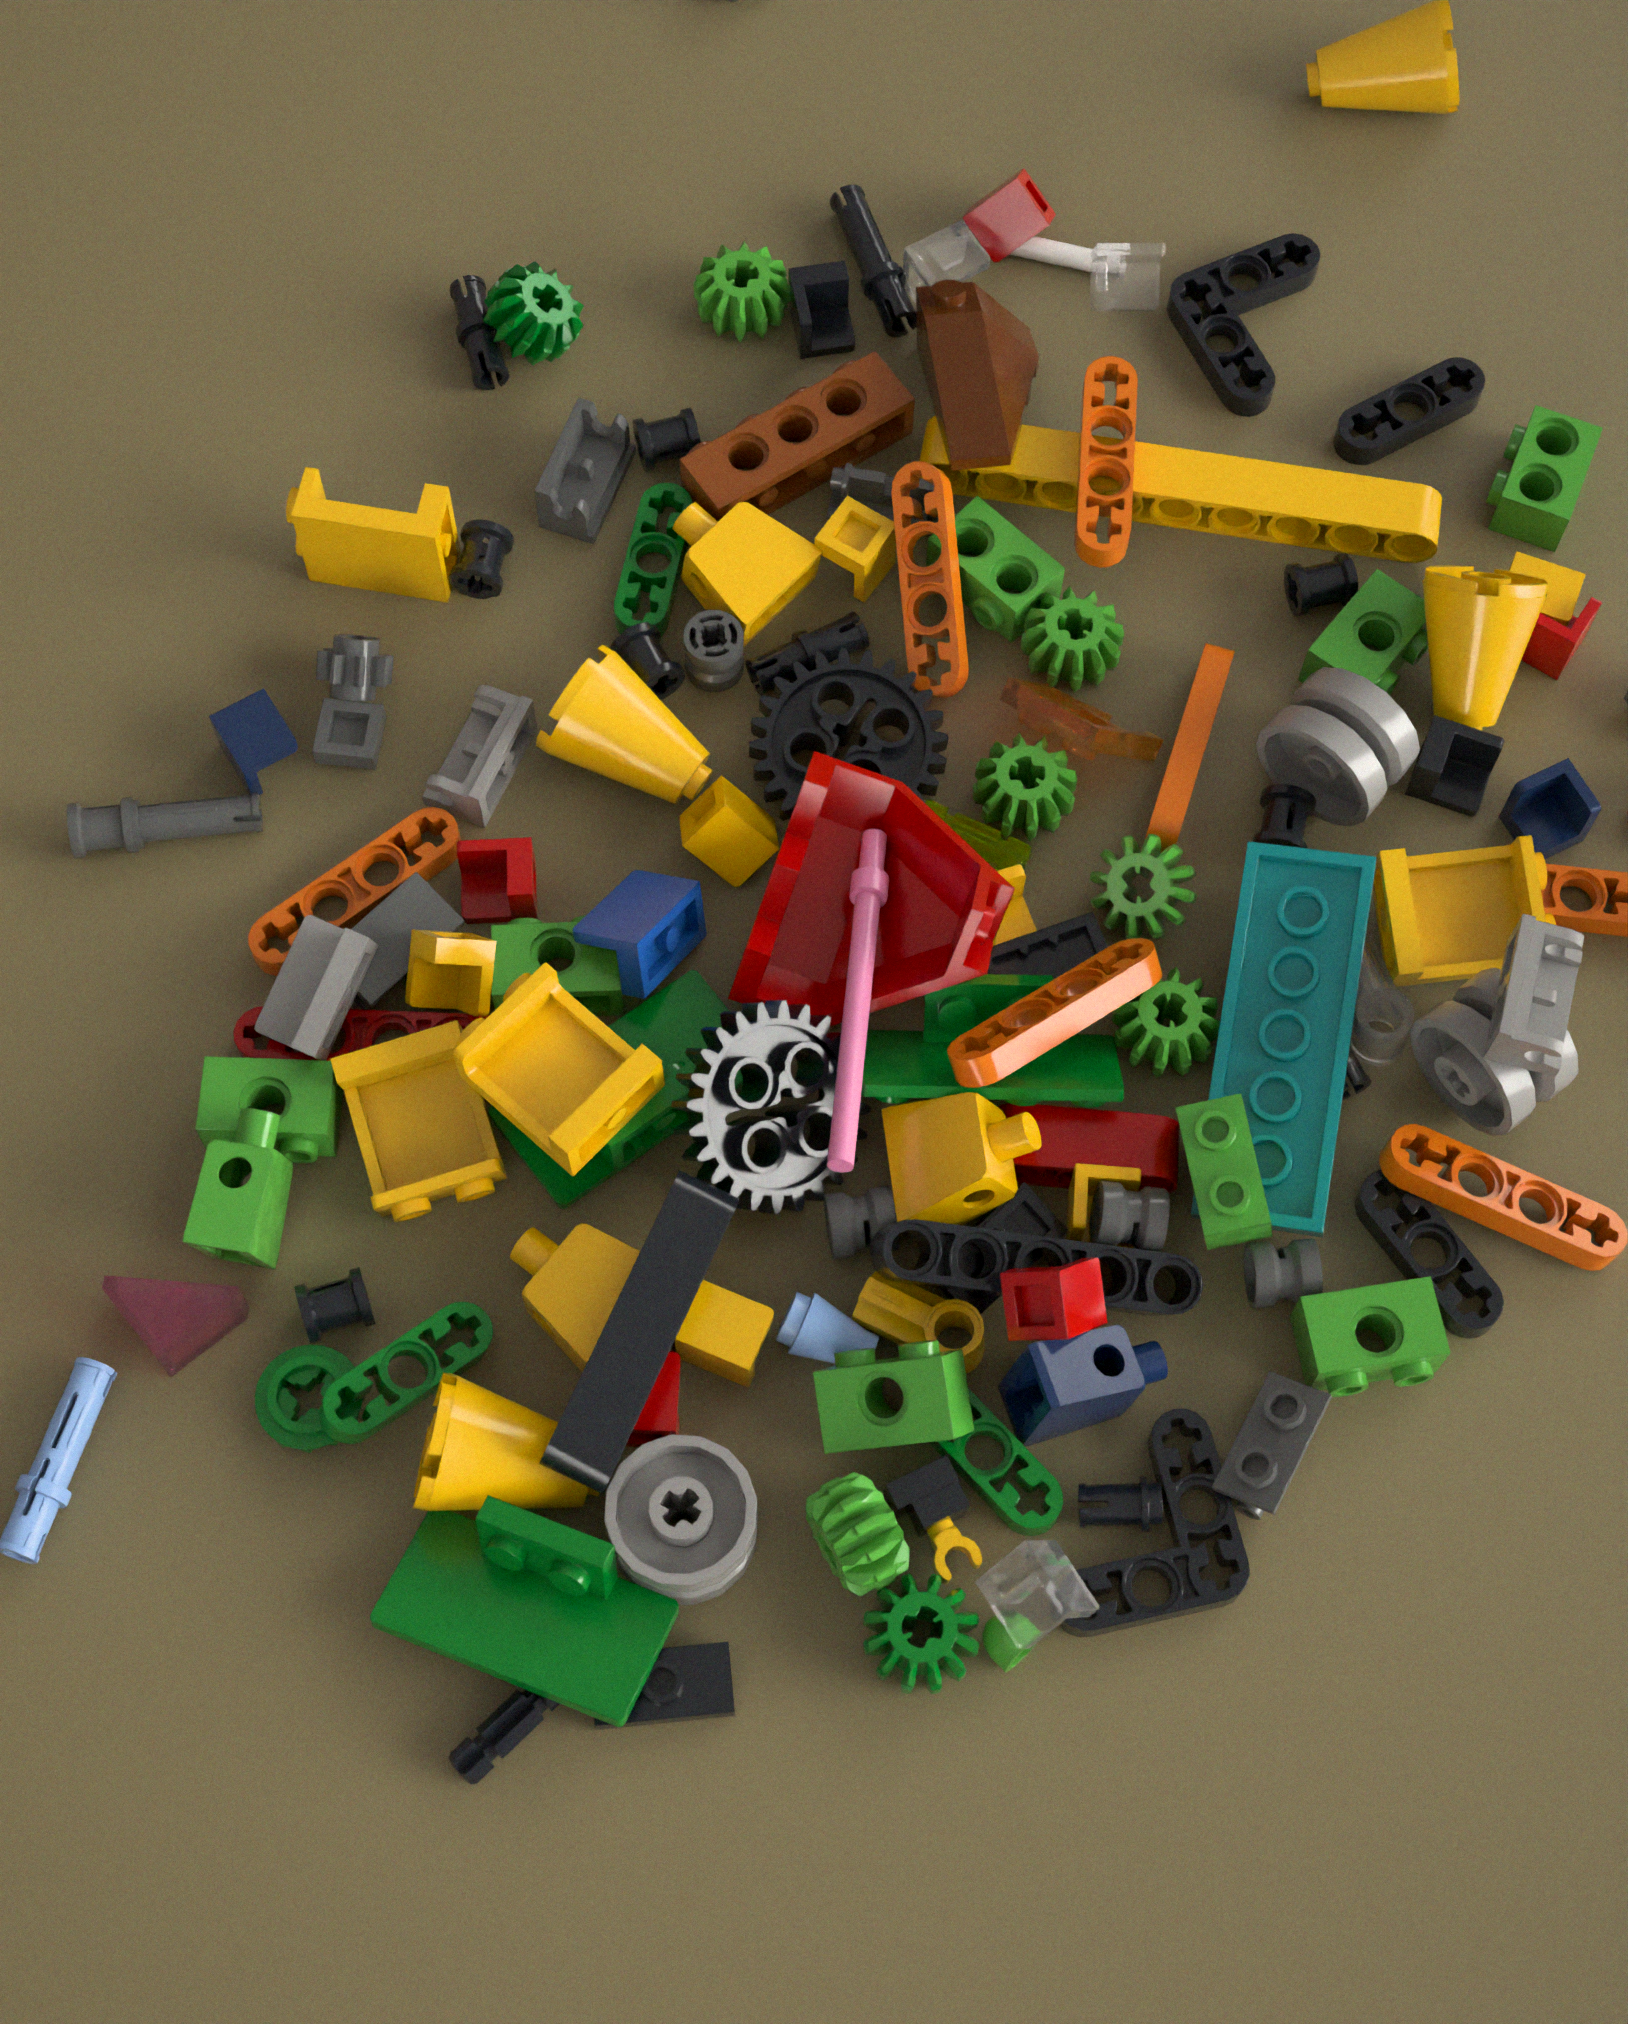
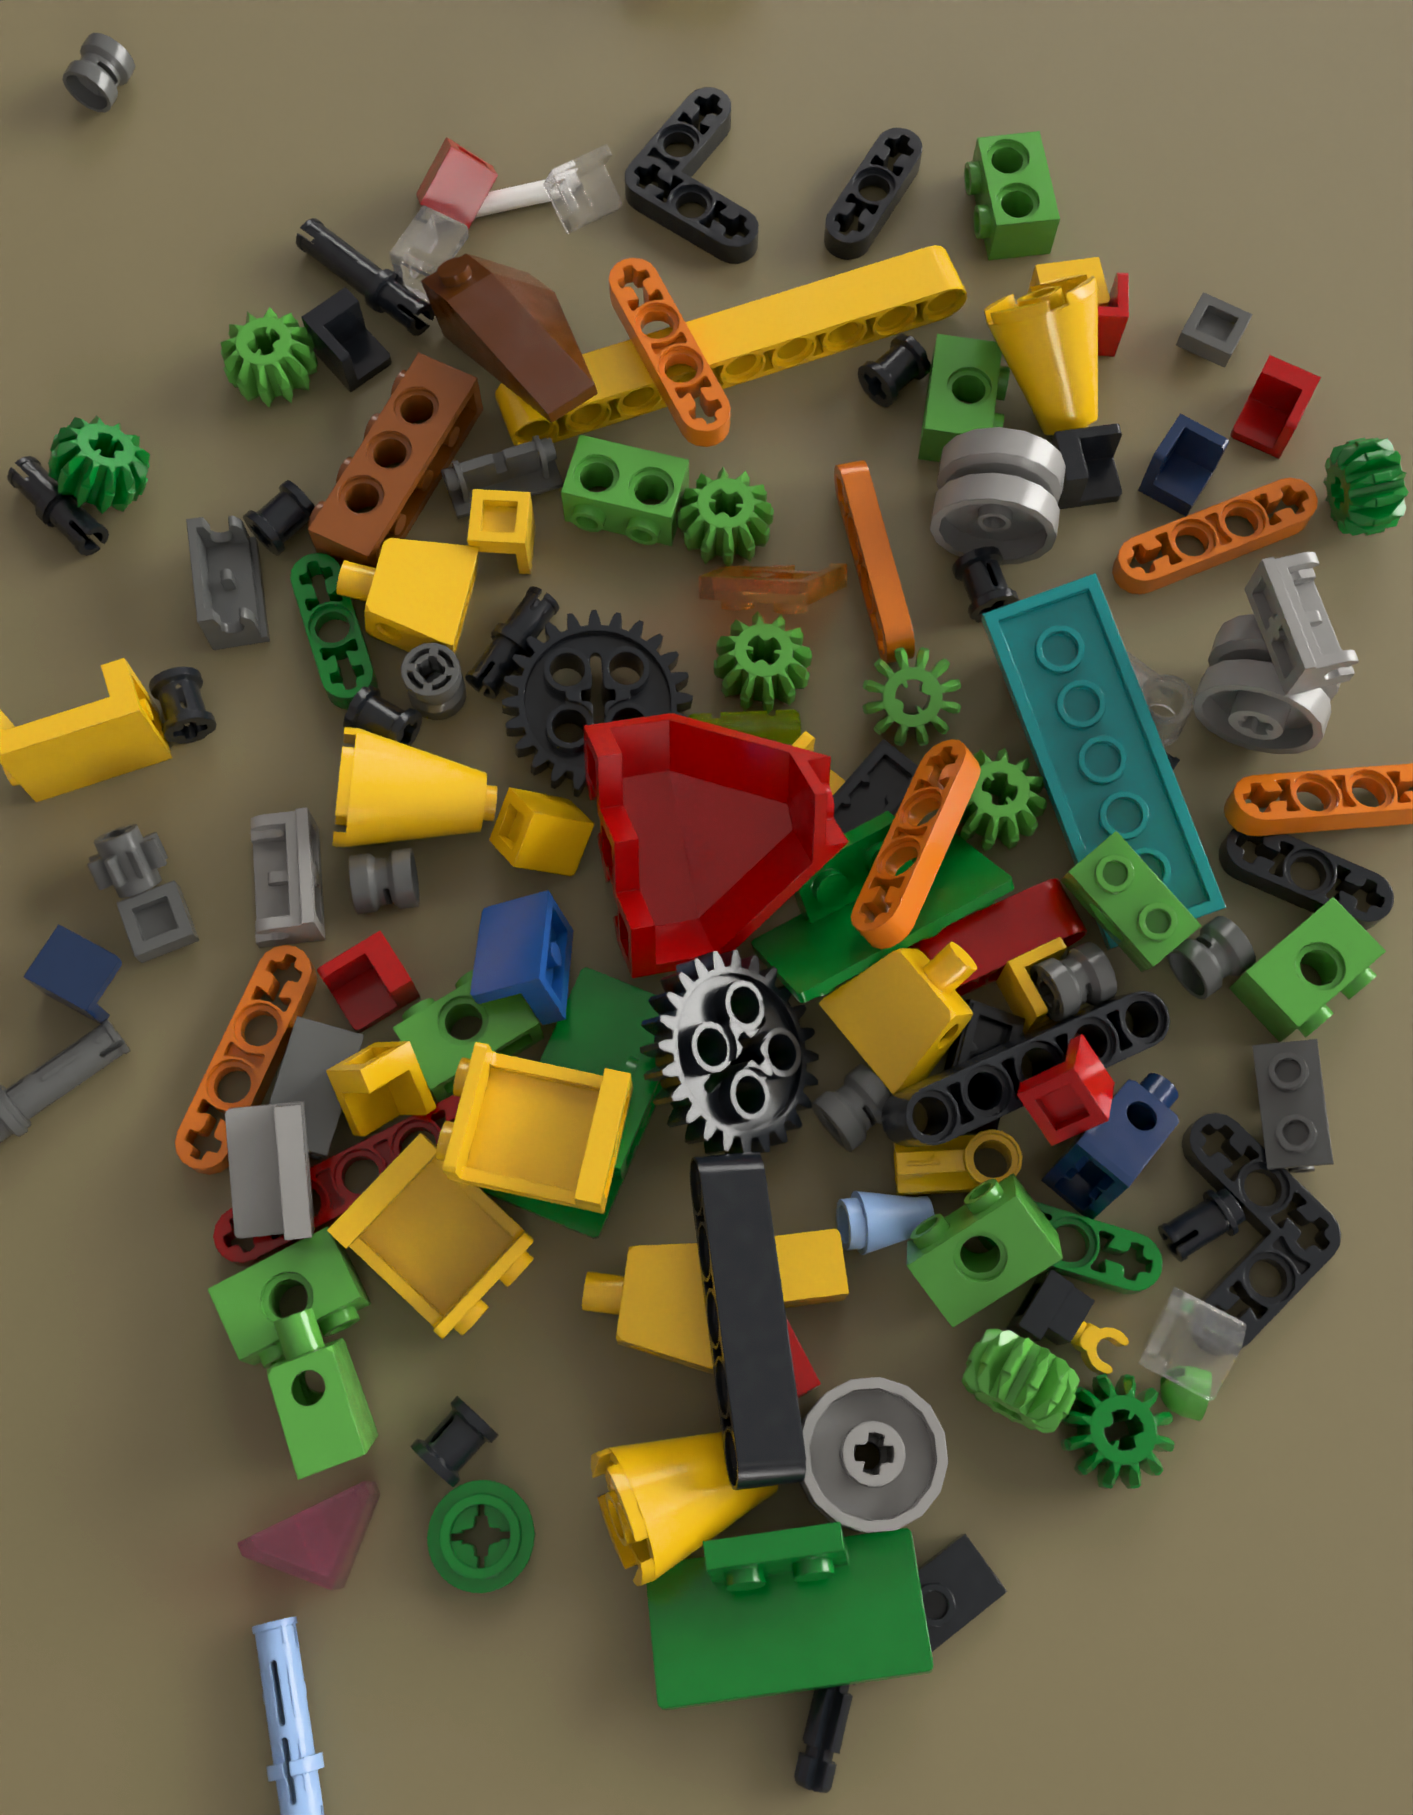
camera: 30 degrees left, 5 degrees up
(356, 1385) = (520, 1505): green beam -> none
(563, 801) = (384, 881): none -> dark grey wheel
(868, 894) = (698, 824): bright pink bar -> none
(939, 578) = (590, 522): orange beam -> none
(1454, 909) = (1175, 580): yellow panel -> none

